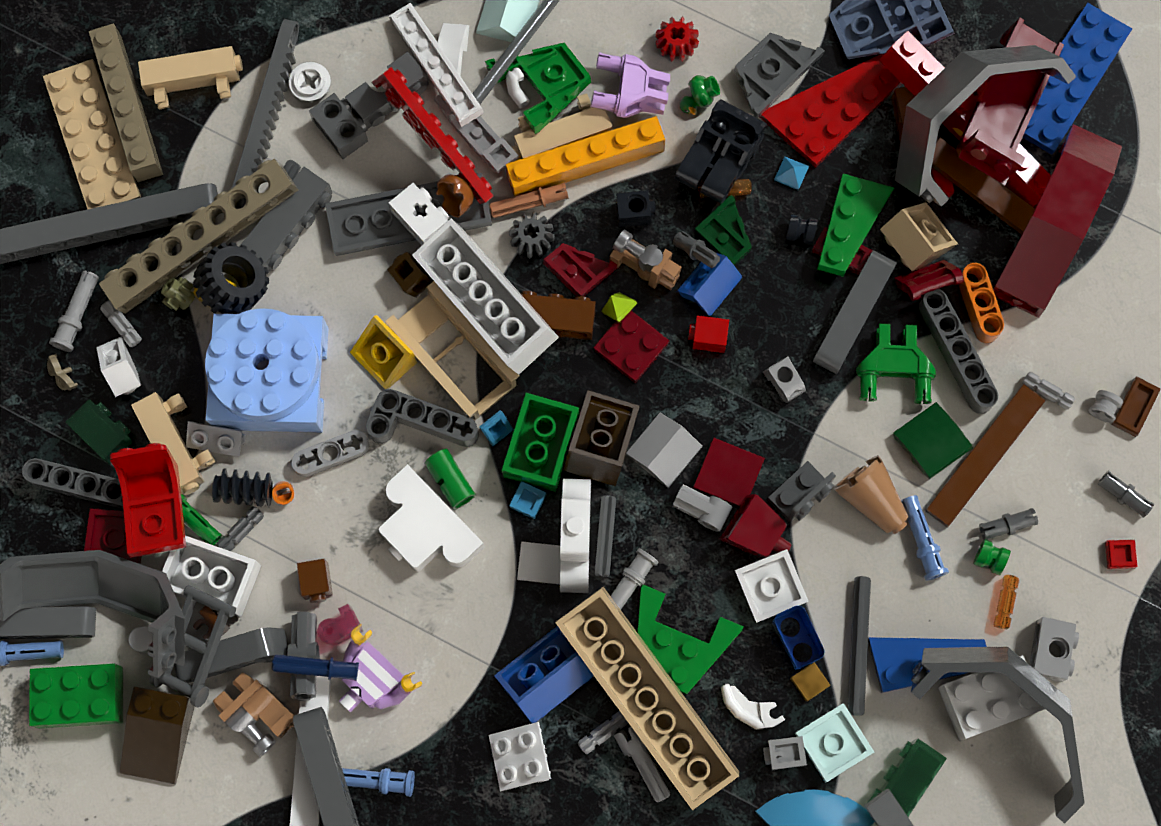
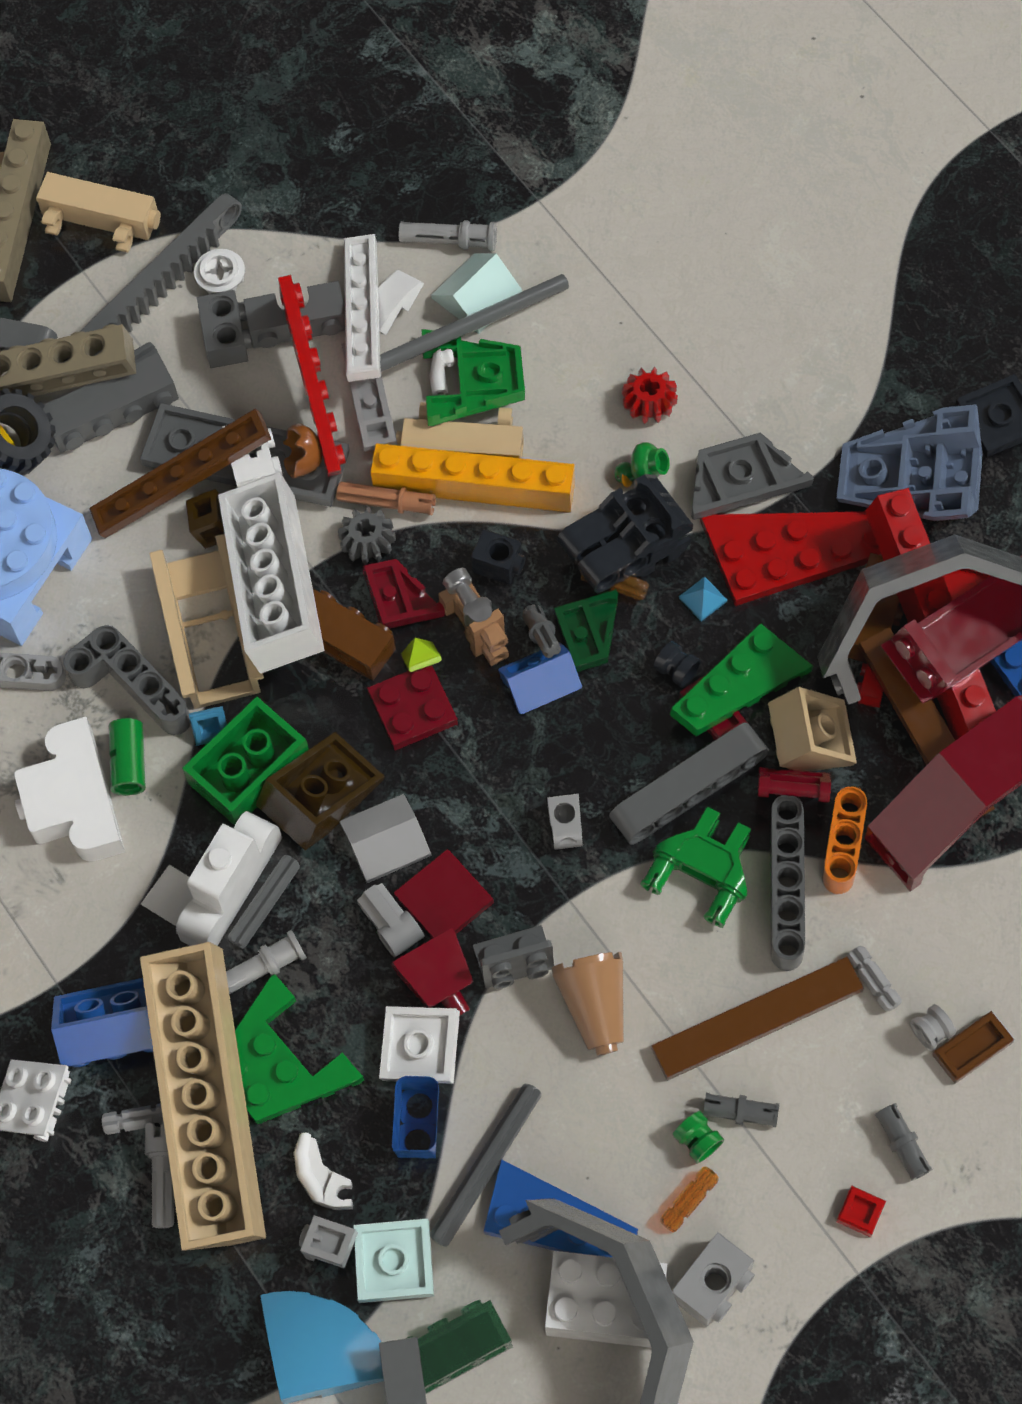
camera: 30 degrees right, 10 degrees down
(374, 251) = (180, 473): none -> reddish brown tile
(383, 353) = (131, 589): yellow slope -> none
(527, 500) = (199, 820): dark azure plate -> none
(639, 87) = (572, 429): lavender connector -> none
(709, 334) = (506, 731): red brick -> none
(810, 681) = (406, 1178): pearl gold tile -> none
(927, 549) = (627, 1093): medium blue pin -> none
(932, 440) = (702, 970): dark green slope -> none

